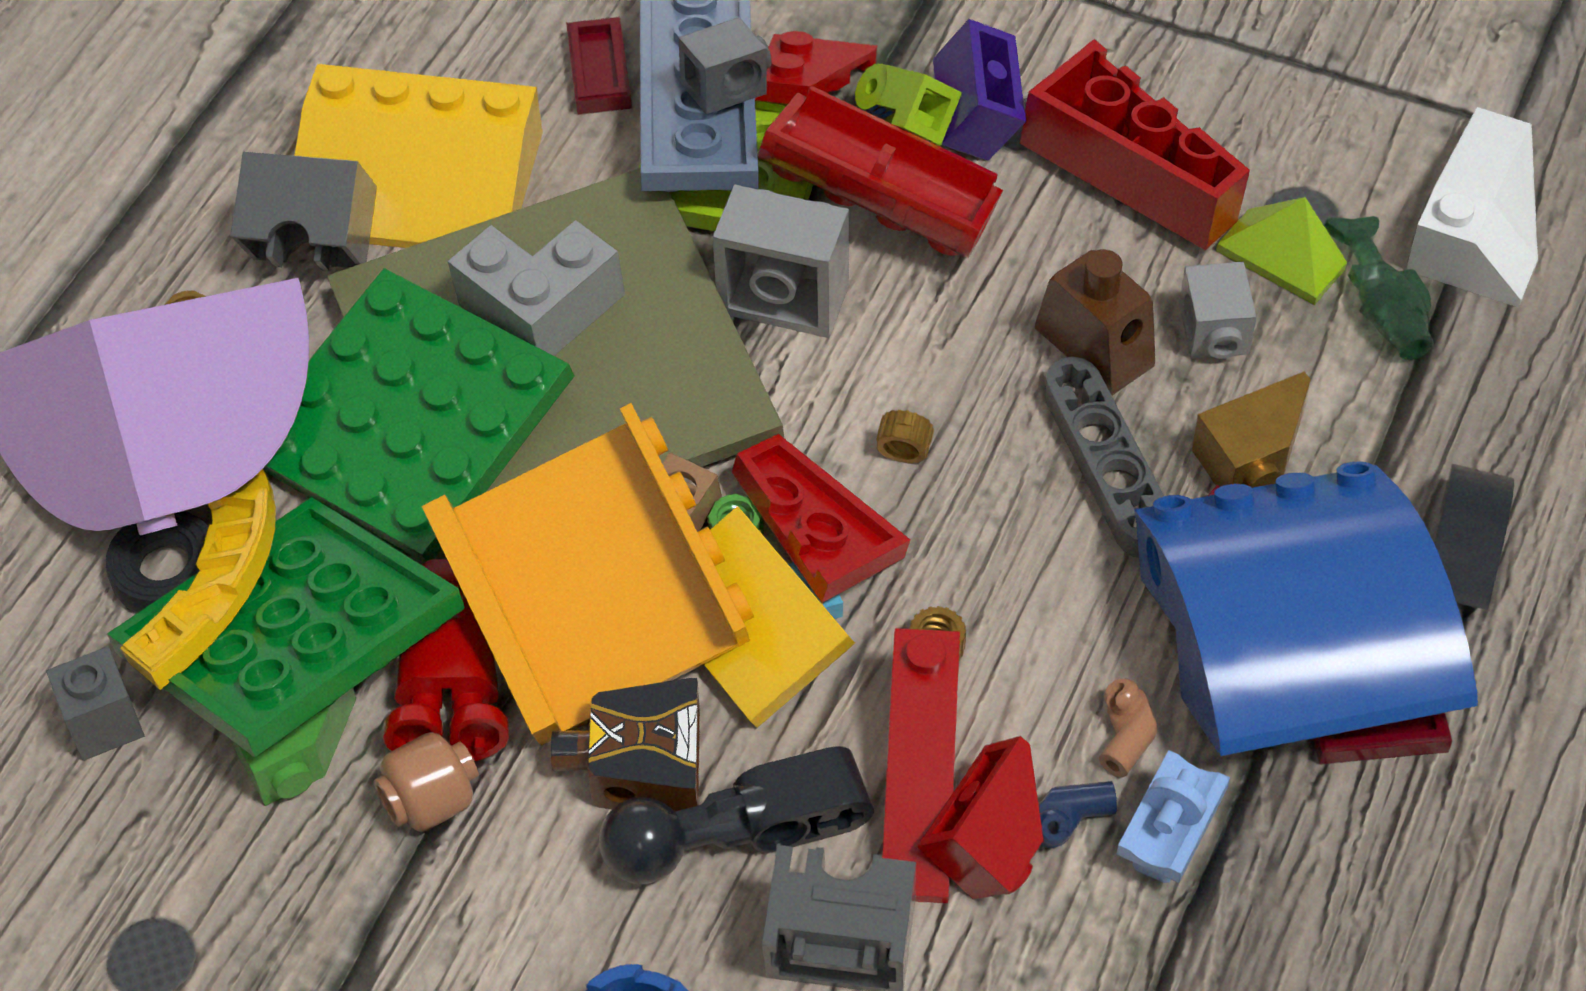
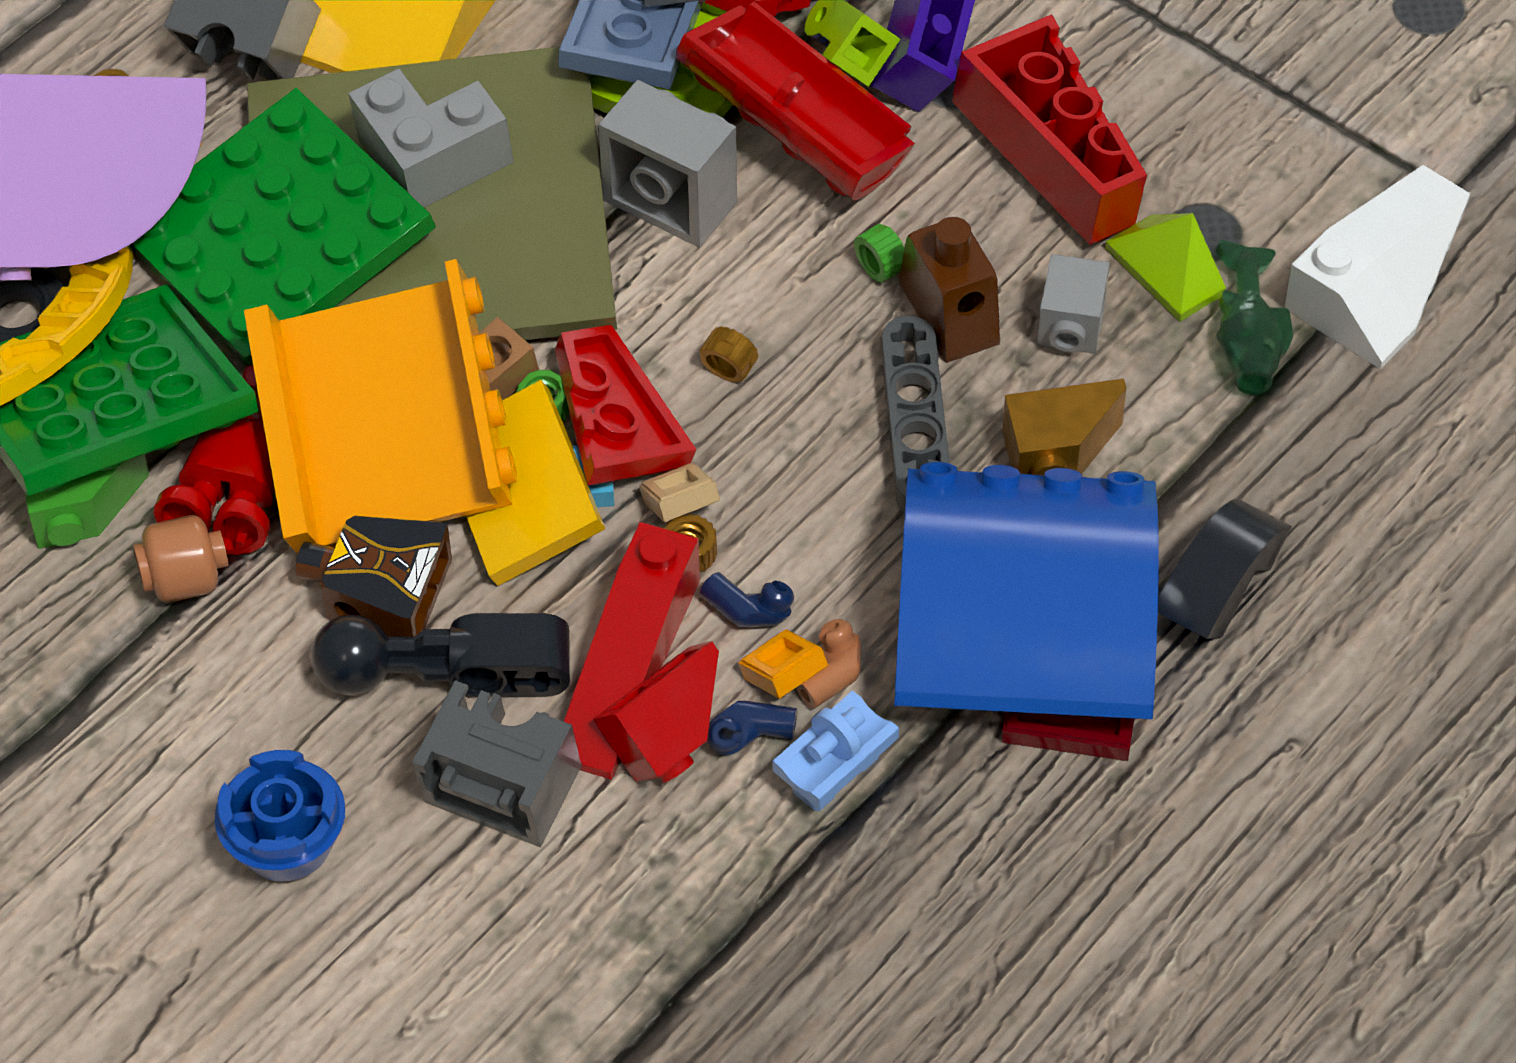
camera: 15 degrees right, 0 degrees up
(909, 587) = (679, 492): none -> tan tile
(1012, 302) = (879, 252): none -> bright green axle
(1021, 690) = (750, 609): none -> dark blue arm
(1080, 738) = (783, 663): none -> light orange tile

